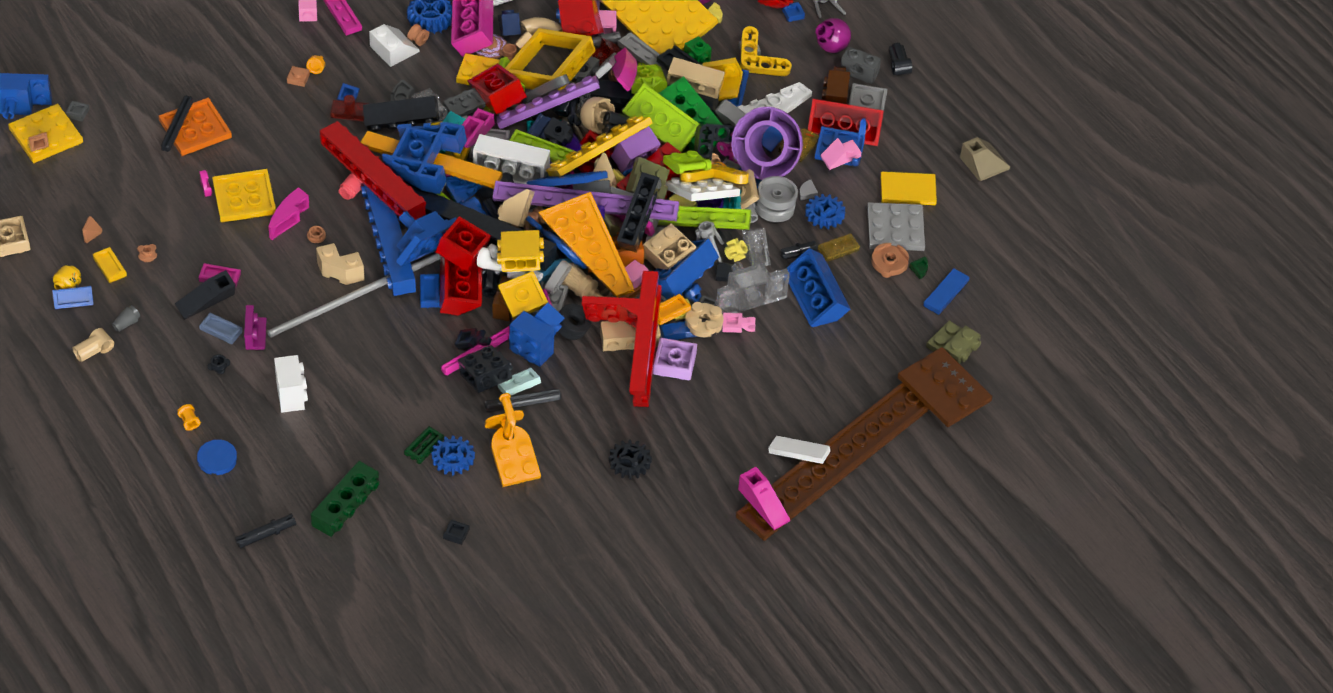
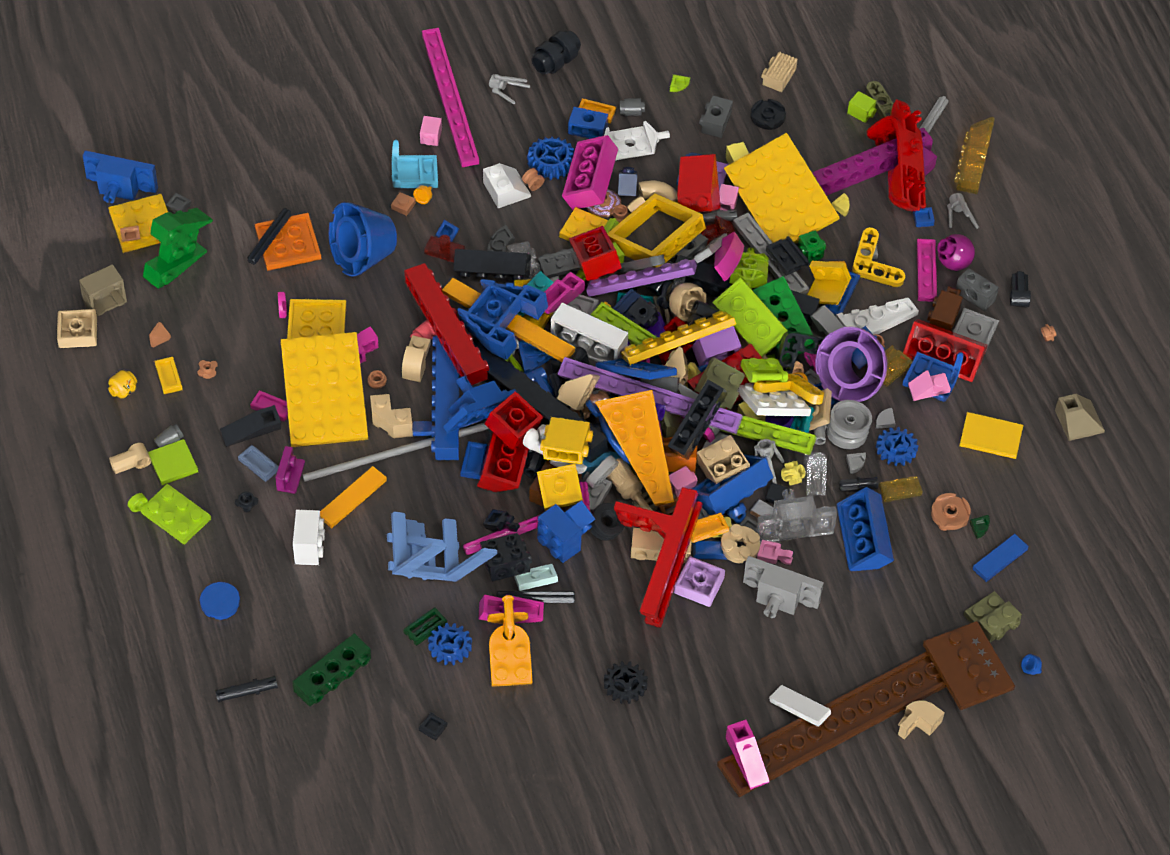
camera: 15 degrees right, 5 degrees up
(25, 196) = (103, 290): none -> dark tan container
(73, 297) = (123, 404): tile -> none
(89, 144) = (177, 246): none -> green wedge
(111, 382) = (137, 502): none -> lime tile
(136, 341) = (173, 462): none -> lime tile
(151, 387) = (175, 514): none -> lime plate
(188, 416) = (202, 553): light orange bush -> none
(267, 109) = (360, 237): none -> blue cone
(268, 250) = (324, 389): none -> yellow plate
(300, 45) = (413, 170): none -> medium azure piece
(323, 341) = (352, 496): none -> light orange tile
(349, 209) = (414, 358): none -> tan brick
(373, 271) = (422, 428): none -> blue slope
(400, 378) = (416, 554): none -> medium blue piece
(483, 412) = (493, 605): none -> dark pink slope
(702, 78) = (799, 277): tan brick -> none
(712, 286) = (761, 508): none -> flat silver piece
(753, 349) = (781, 587): none -> light grey brick
(790, 232) = (855, 462): none -> light grey tile
(808, 56) = (926, 270): none -> dark pink tile
(896, 225) = (967, 475): light grey plate -> none
(914, 438) = (920, 714): none -> tan brick
(935, 92) = (1048, 332): none -> nougat plate
(1001, 377) = (1031, 664): none -> blue tile

